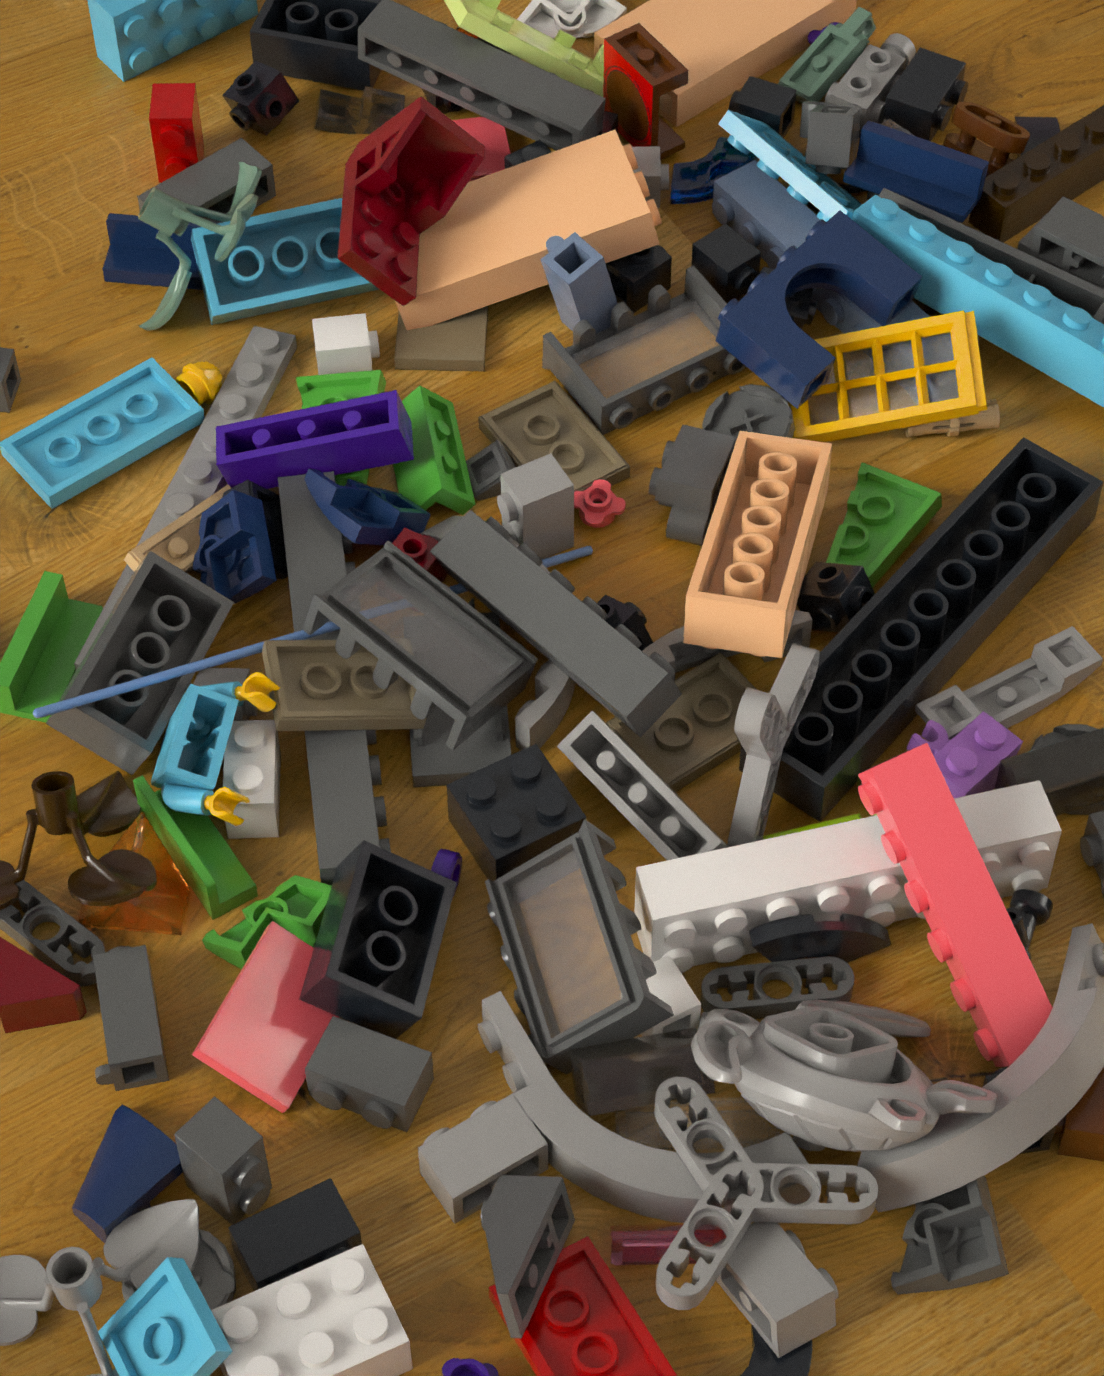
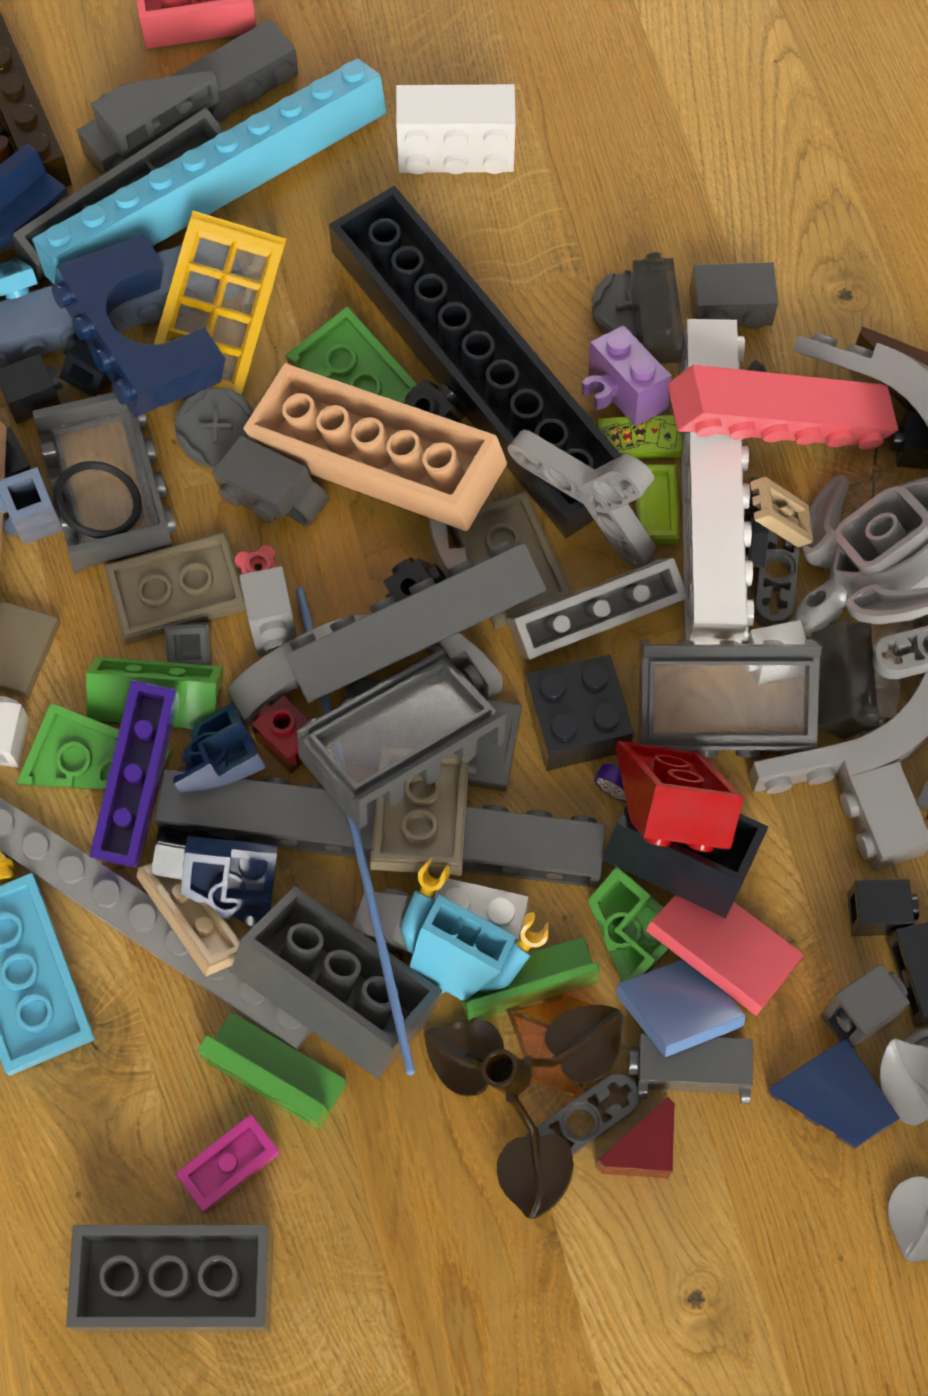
camera: 75 degrees left, 15 degrees up
(181, 977) = (679, 1007): none -> medium blue tile
(364, 1172) = (881, 907): none -> black brick
(369, 1074) = (793, 883): dark grey brick -> none
(415, 890) = (678, 797): none -> red slope
(626, 308) = (88, 465): none -> black tyre
(818, 904) = (779, 511): none -> tan tile
(1020, 691) = (549, 320): light grey slope -> none

